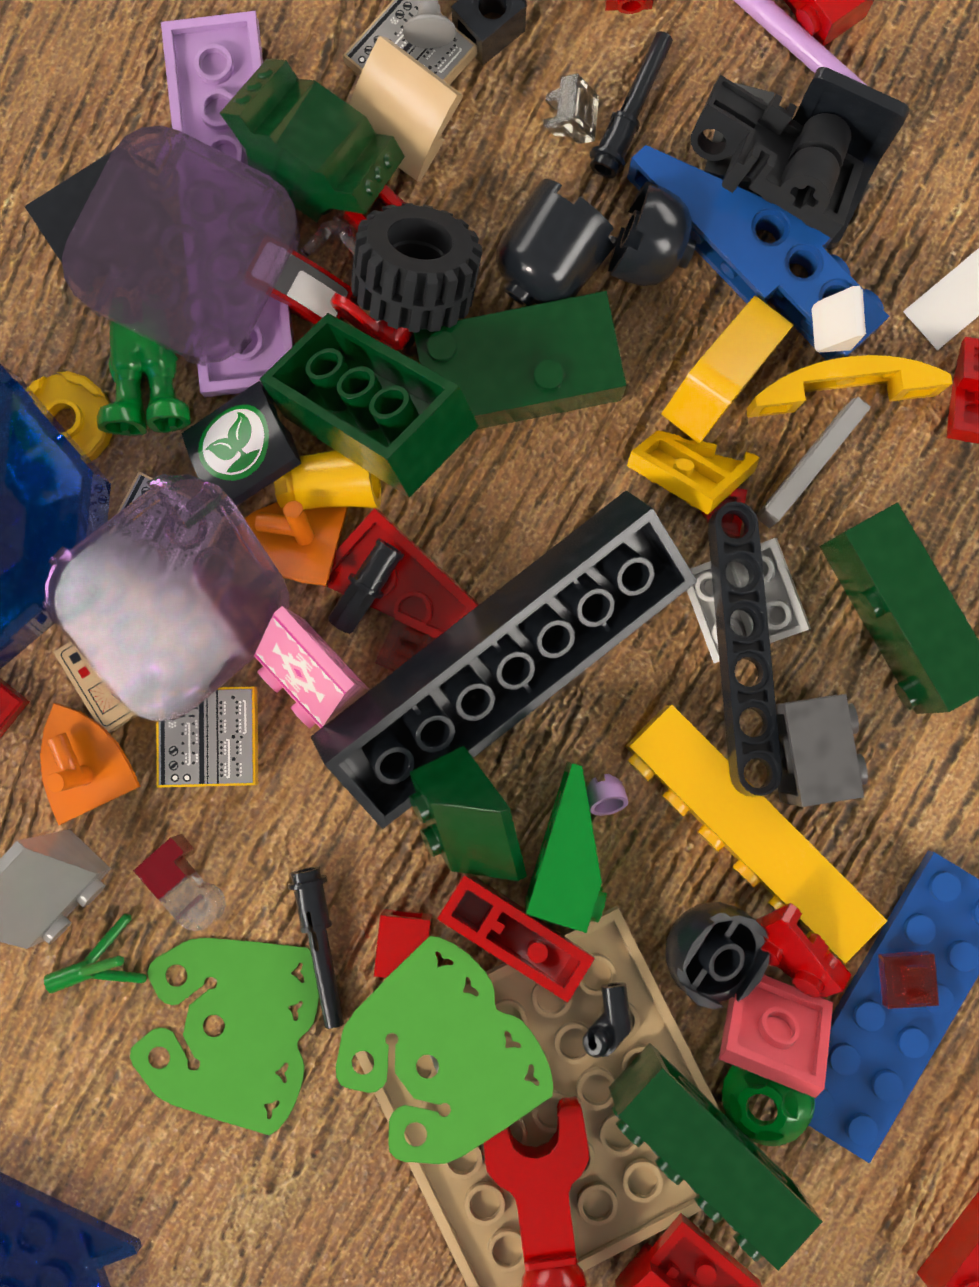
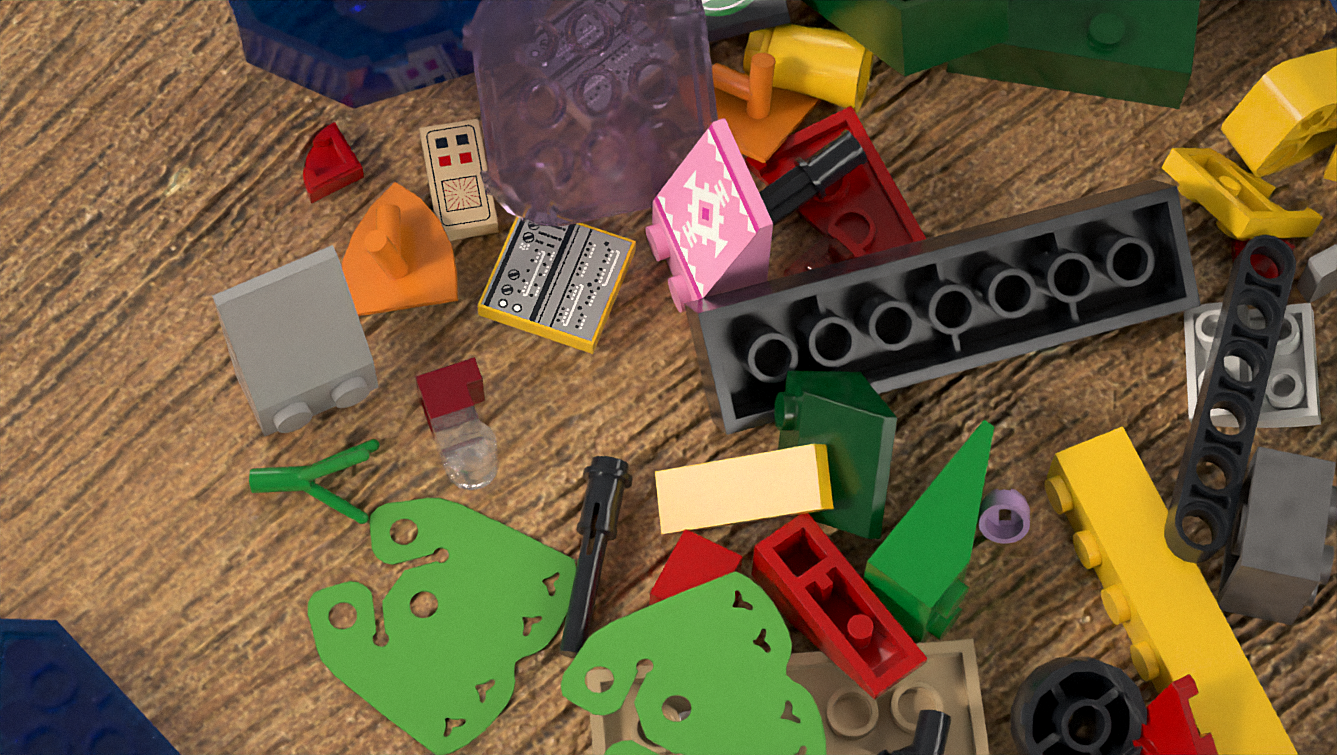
camera: 15 degrees right, 20 degrees down
(413, 871) = (744, 489): none -> yellow tile

